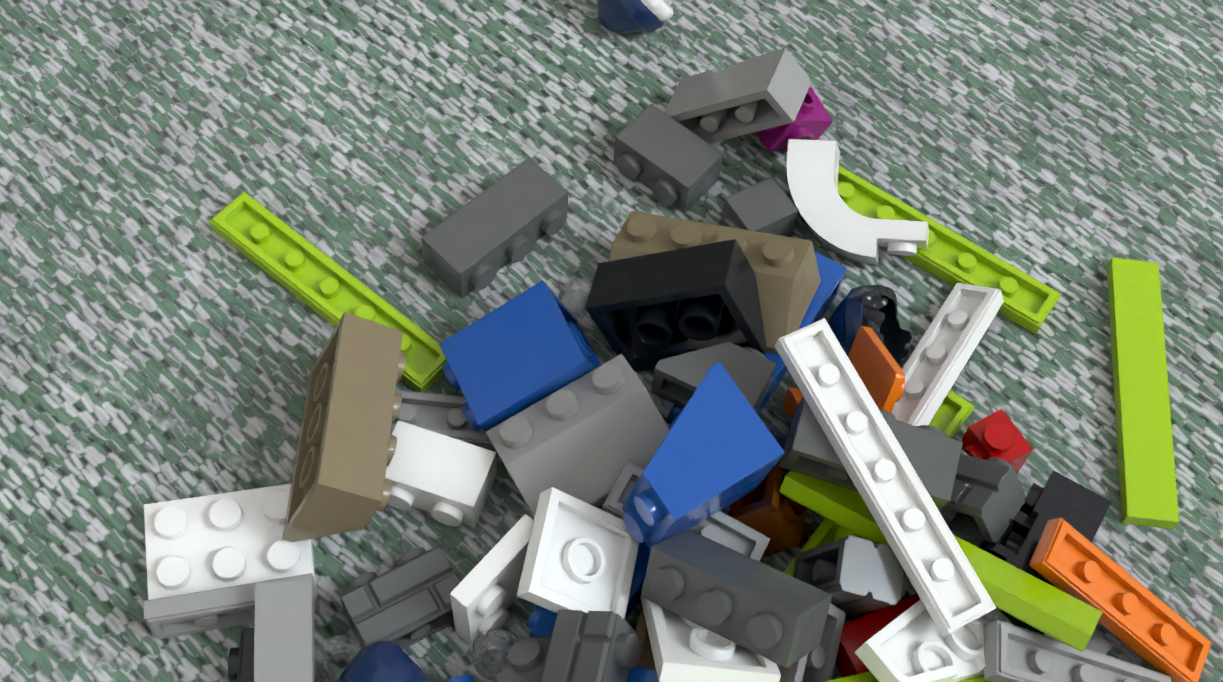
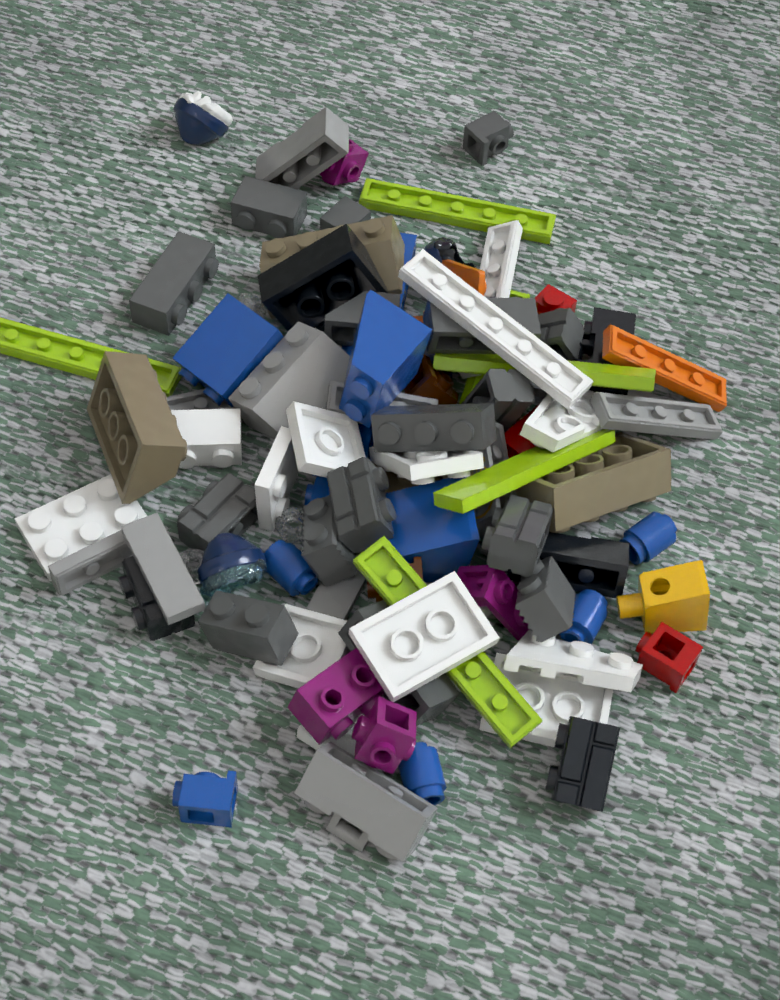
camera: 20 degrees left, 5 degrees down
(814, 188) = (410, 215): white arch -> none
(1009, 145) = (487, 137): none -> dark grey brick
(1141, 395) = (628, 256): lime tile -> none

